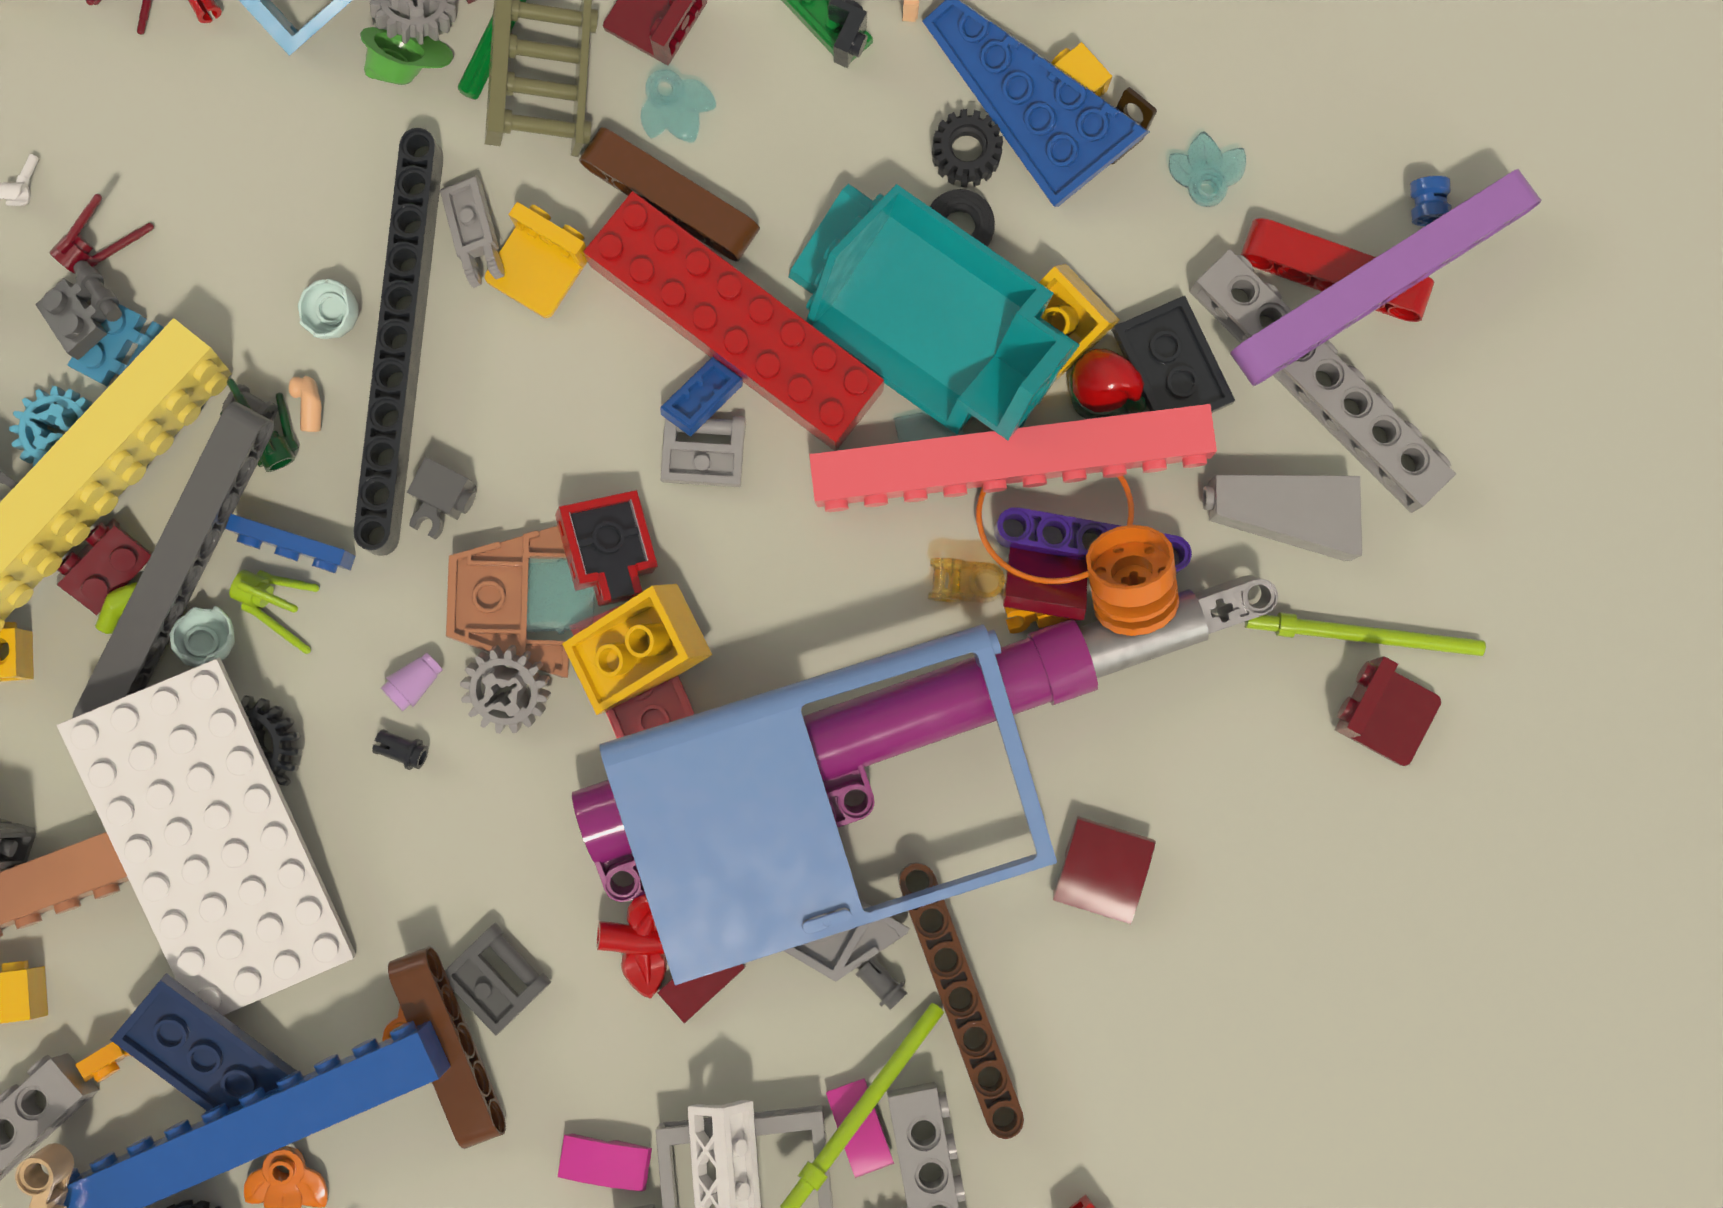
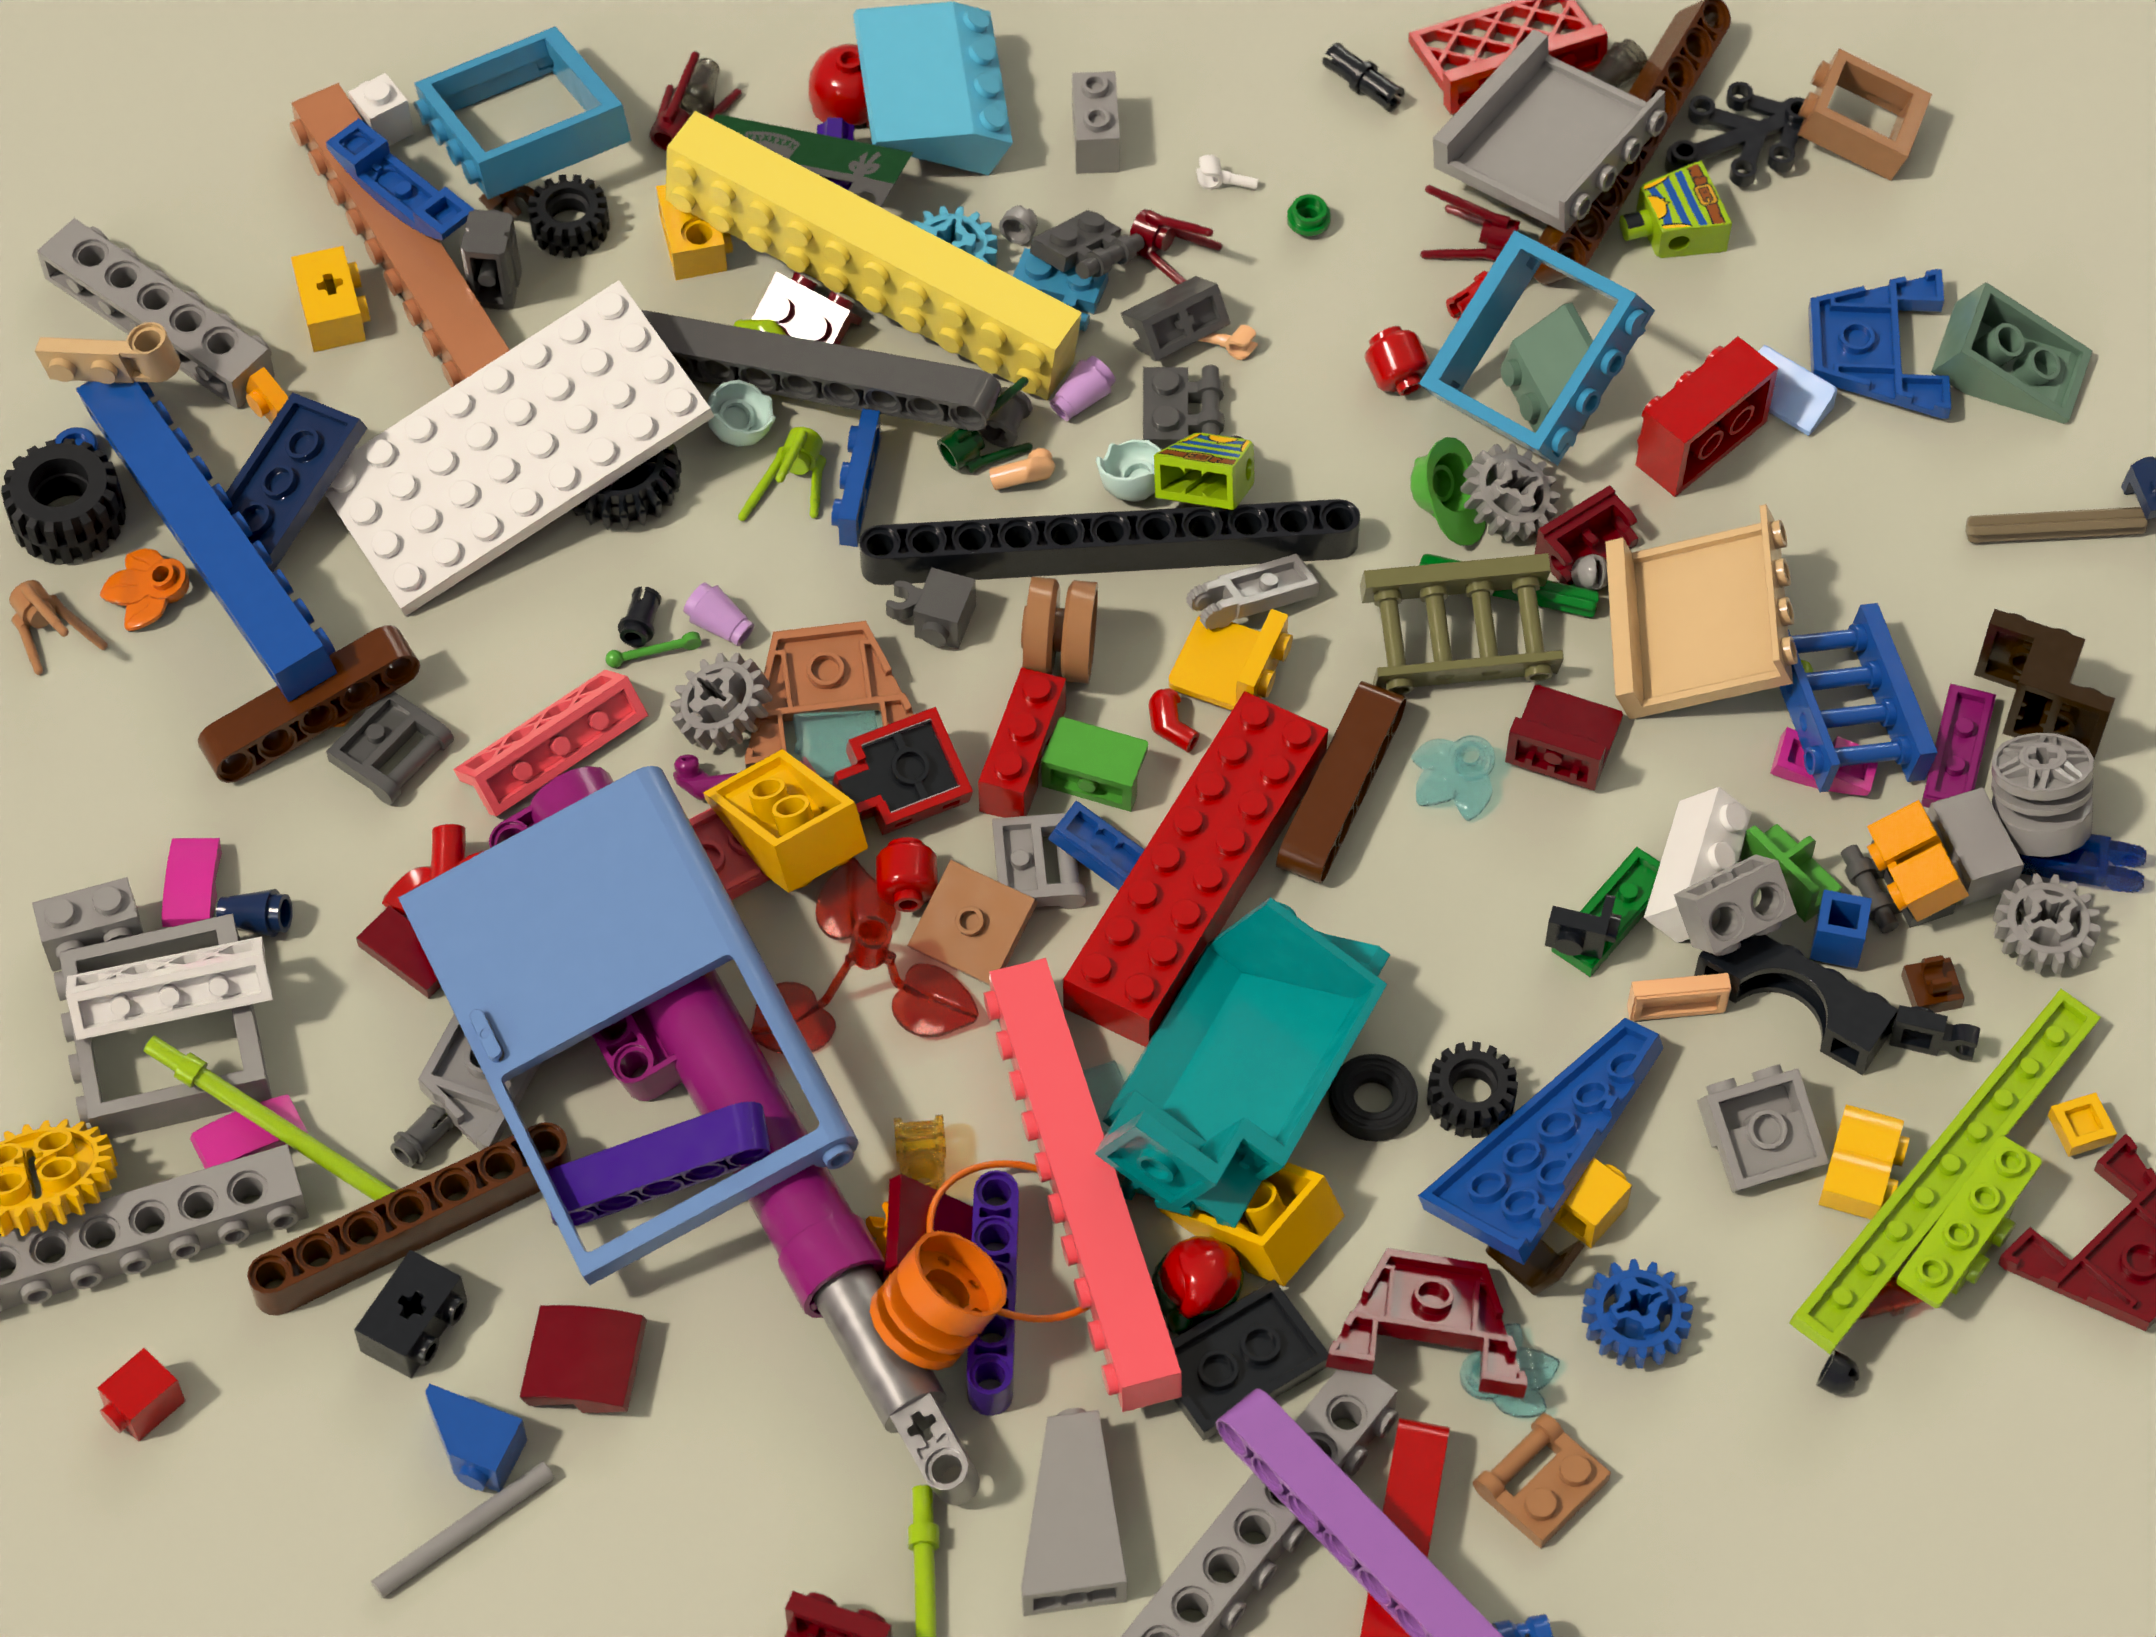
camera: 85 degrees right, 25 degrees down
(45, 372) = (1011, 221): none -> light grey hinge
(74, 110) = (1308, 215): none -> green plate
(172, 246) = (1177, 317): none -> dark grey hinge
(208, 202) = (1237, 345): none -> light nougat hand
(231, 339) = (1083, 387): none -> lavender cone
(256, 71) = (1397, 360): none -> red head
(265, 273) = (1167, 399): none -> dark grey plate
(347, 245) = (1205, 470): none -> lime torso
(436, 775) = (689, 641): none -> bright green hinge
(492, 392) = (1057, 629): none -> medium nougat wheel
(517, 835) = (552, 741): none -> coral fence
(576, 718) = (693, 778): none -> magenta arm
(582, 325) = (1165, 720): none -> red arm
(593, 442) = (1016, 753): none -> red arch
(620, 386) = (1093, 763): none -> bright green panel
(645, 1107) = (259, 912): none -> dark blue cone
(703, 556) = (906, 874): none -> red head
(757, 509) = (972, 922): none -> medium nougat plate
(814, 553) = (848, 906): none -> clear red plant
(961, 786) = (662, 1162): none -> dark purple beam
(1059, 1026) = (413, 1289): none -> black brick
(1152, 209) = (1432, 1303): none -> dark red wing
(1163, 964) = (476, 1438): none -> blue slope
(1185, 51) = (1624, 1325): none -> blue gear
(1231, 979) = (462, 1529): none -> light grey bar
(1305, 155) = (1553, 1492): none -> medium nougat plate

